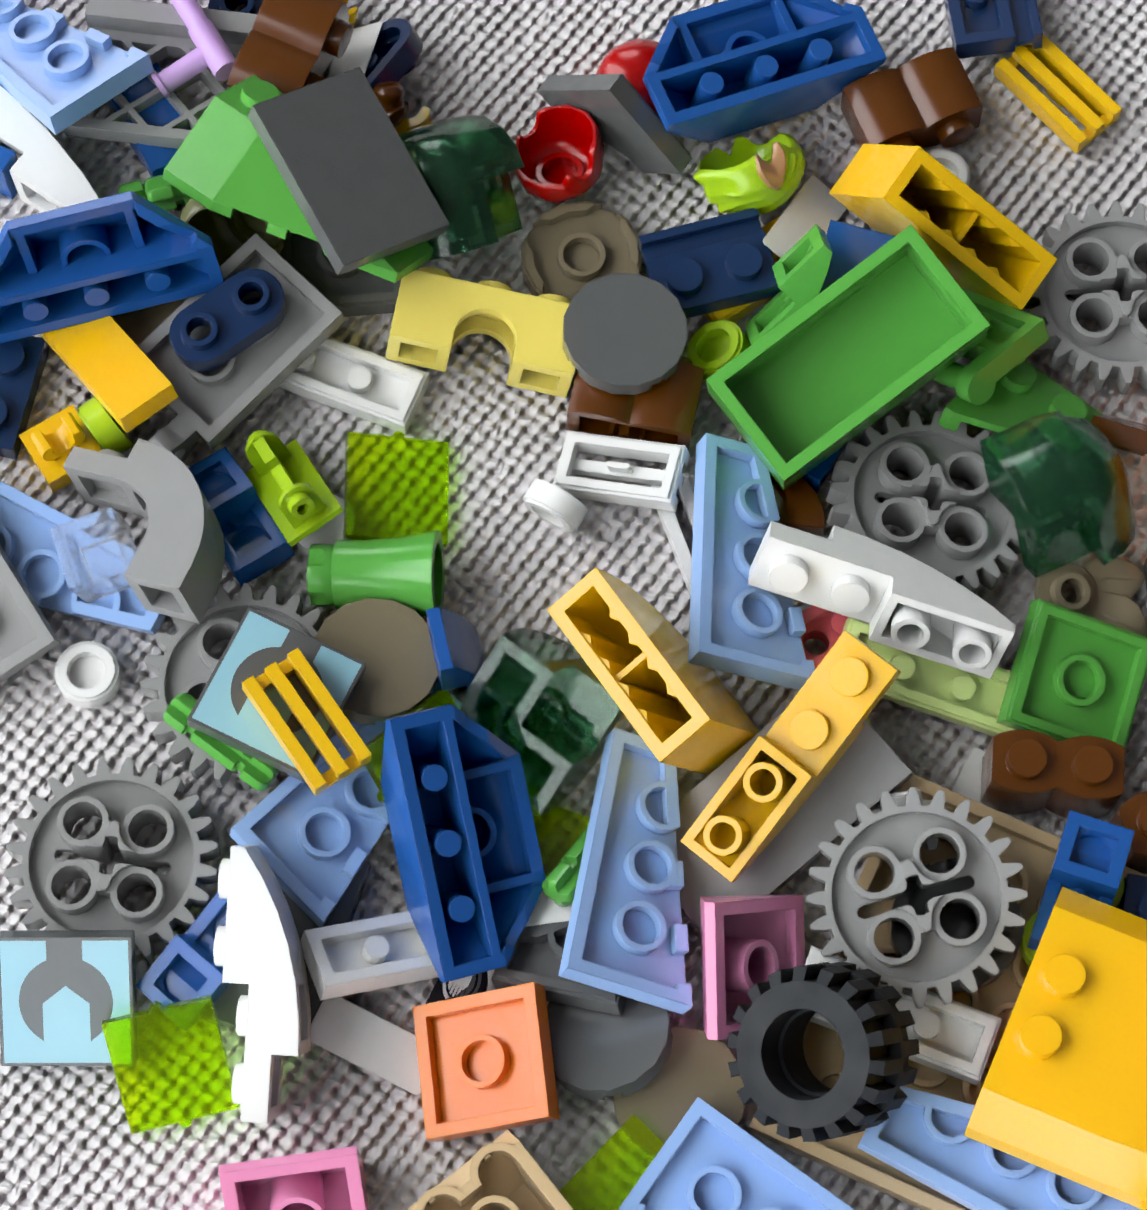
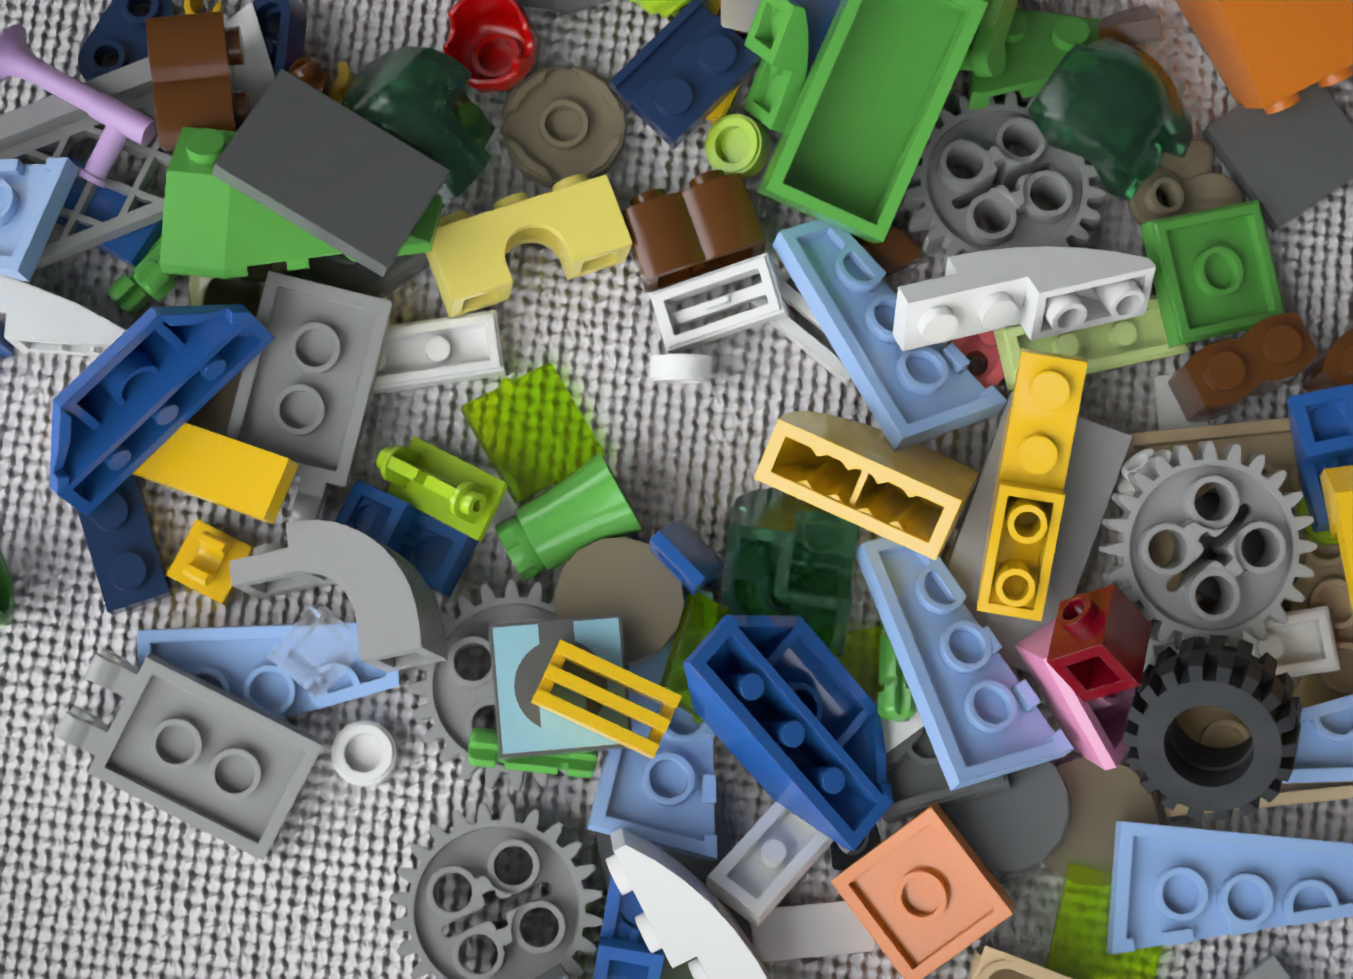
camera: 35 degrees left, 10 degrees up
(104, 426) = (240, 526): lime tile -> none
(231, 321) = (299, 366): dark blue plate -> none
(624, 333) = (657, 181): dark grey tile -> none
(762, 914) = (1099, 643): none -> dark red brick

